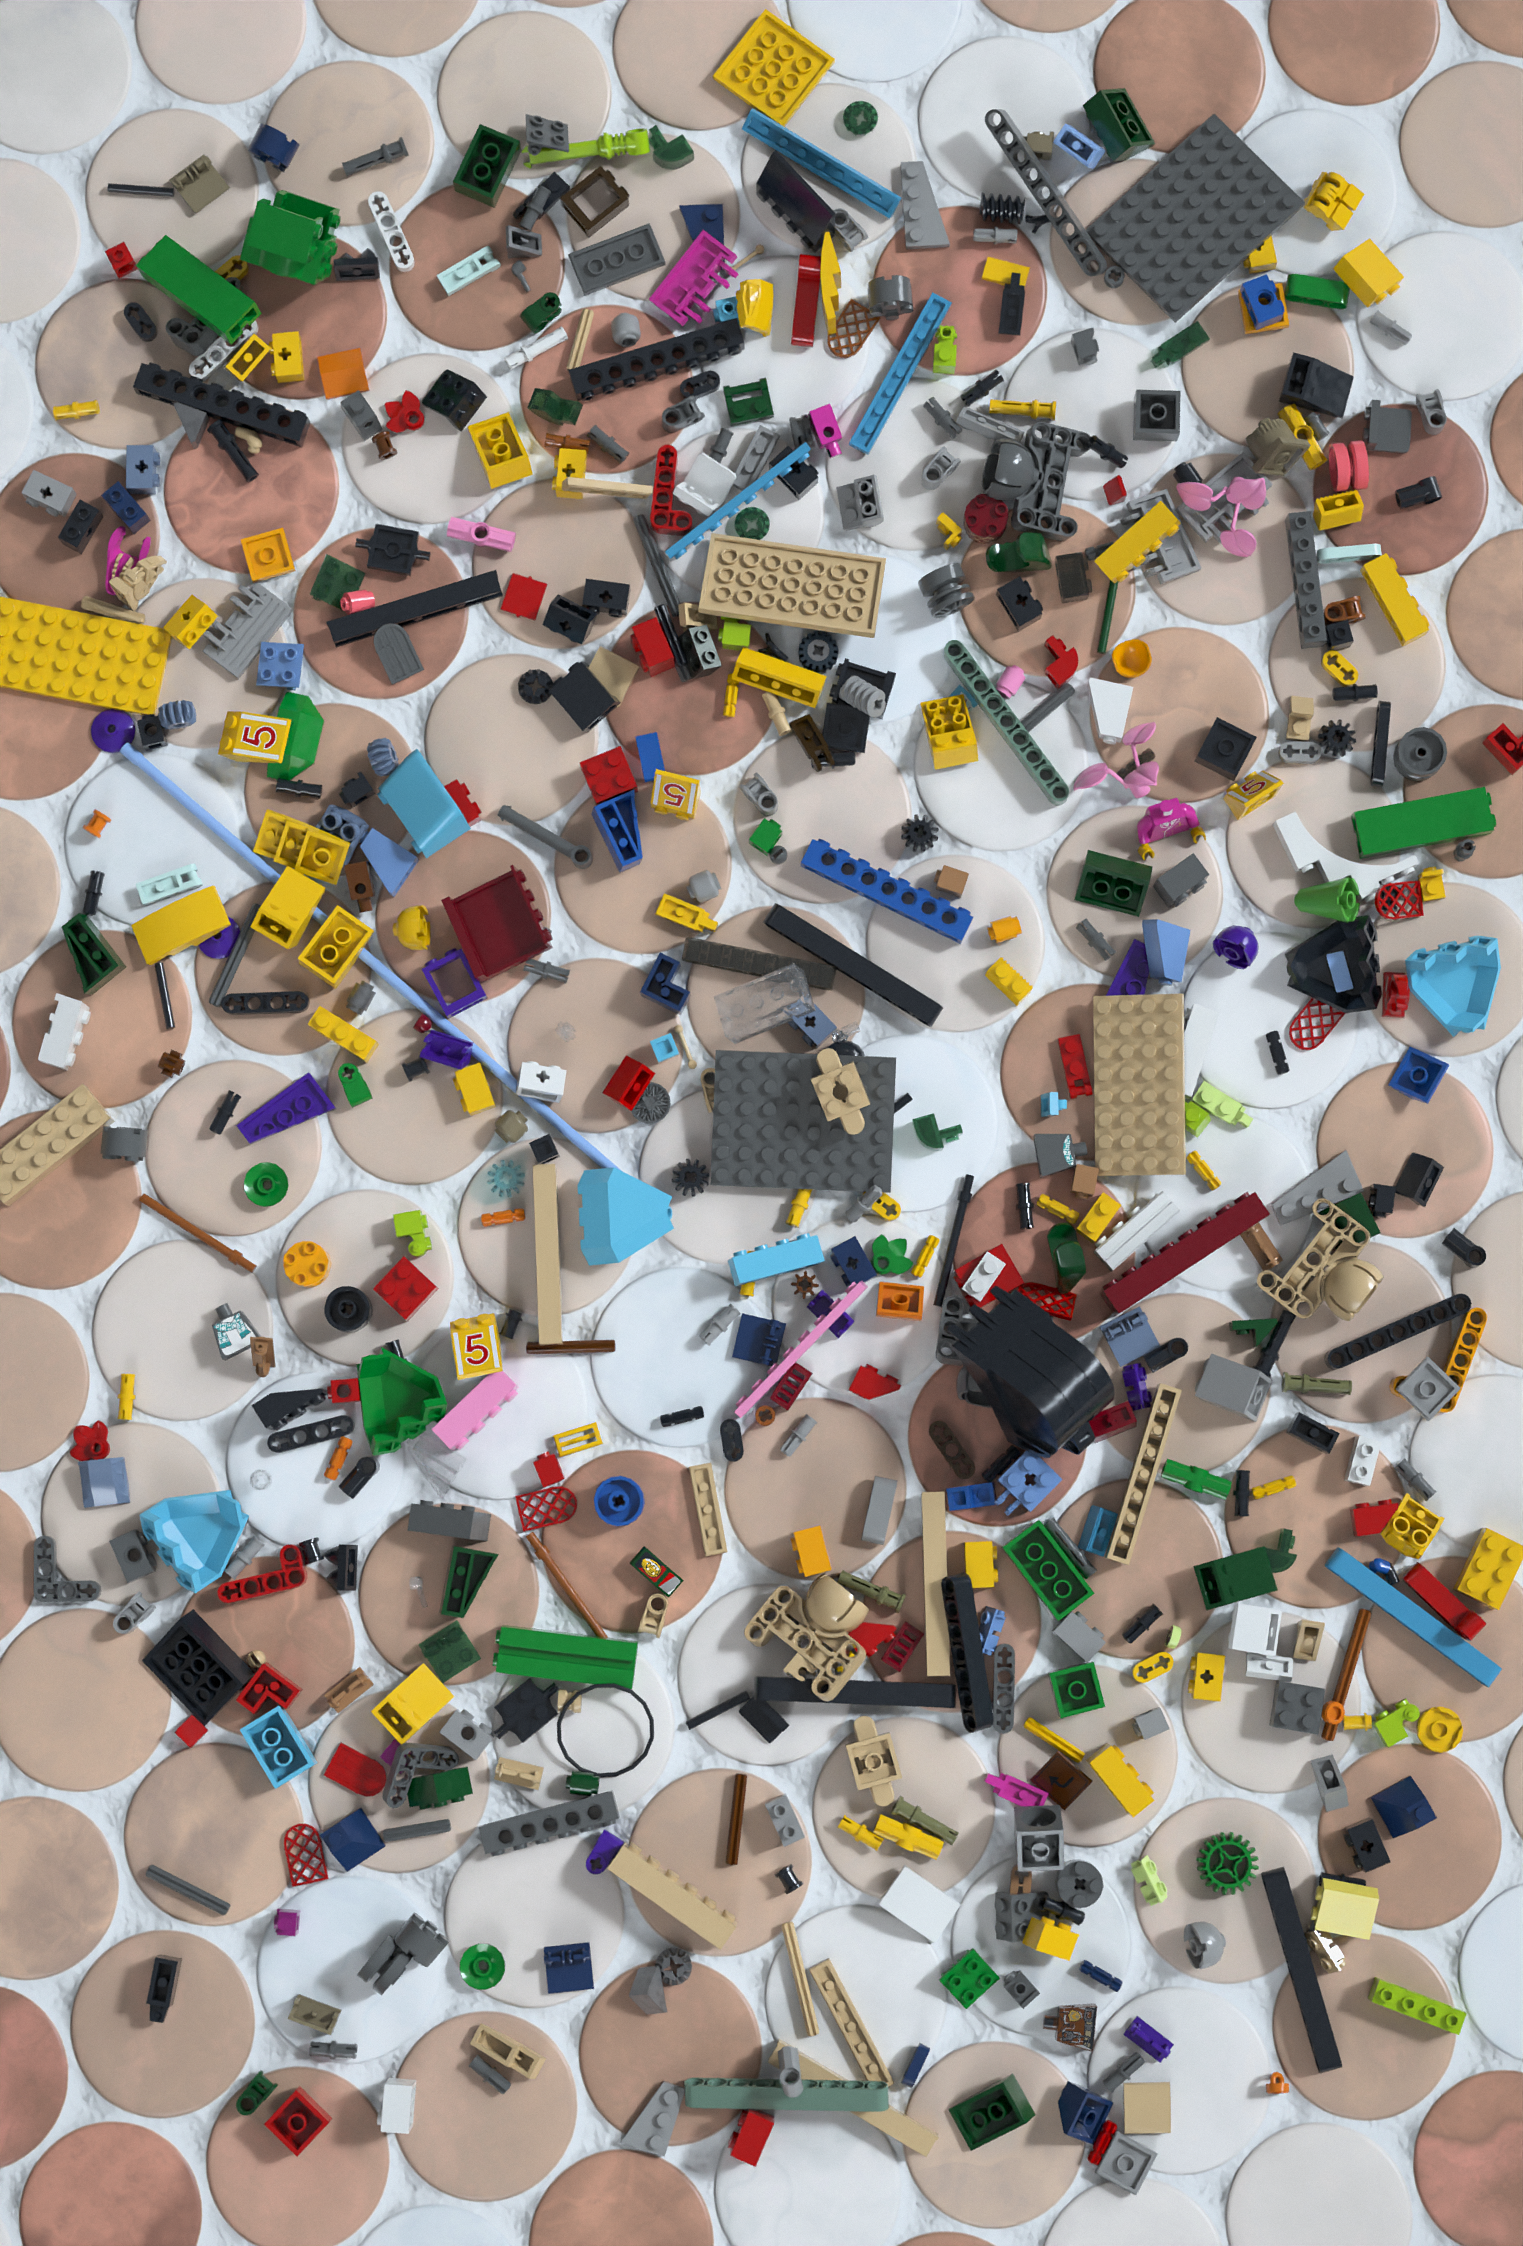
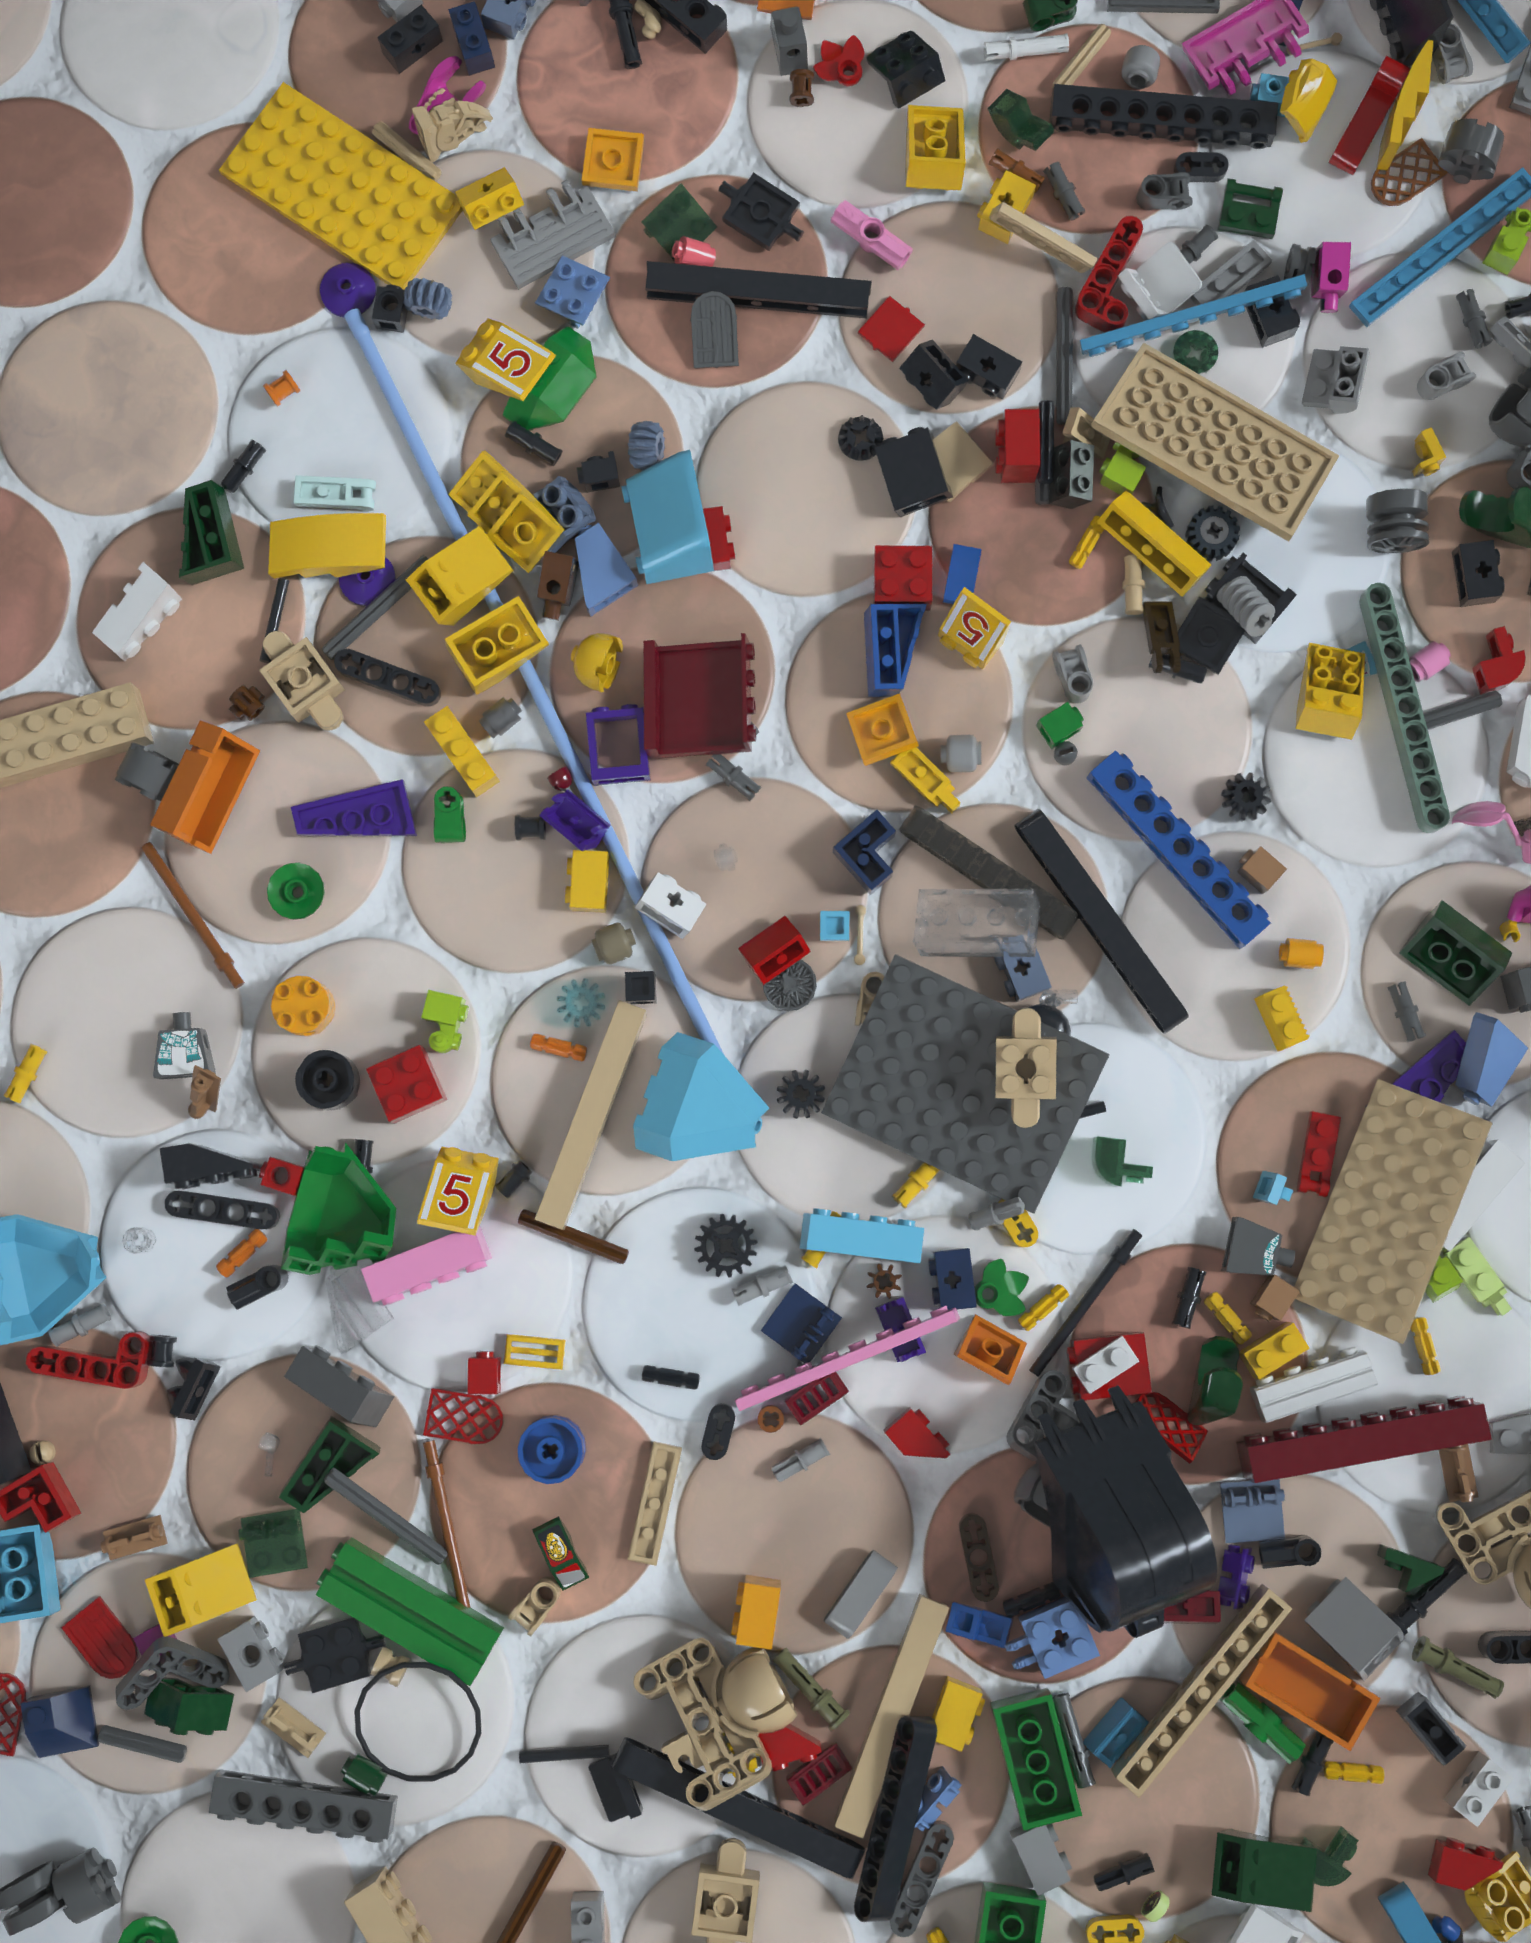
camera: 25 degrees right, 0 degrees up
(170, 1136) = (205, 787): none -> orange piece
(206, 1030) = (302, 680): none -> tan brick
(224, 1113) = (284, 786): black axle -> none
(522, 1596) = (385, 1516): none -> dark grey axle
(546, 836) = (800, 619): dark grey piece -> none
(605, 1849) = (354, 1868): dark purple piece -> none
(639, 892) = (882, 729): none -> light orange plate
(667, 1303) = (717, 1256): none -> black gear
(985, 519) = (1478, 457): dark red brick -> none
(1217, 1441) = (1310, 1690): none -> orange piece

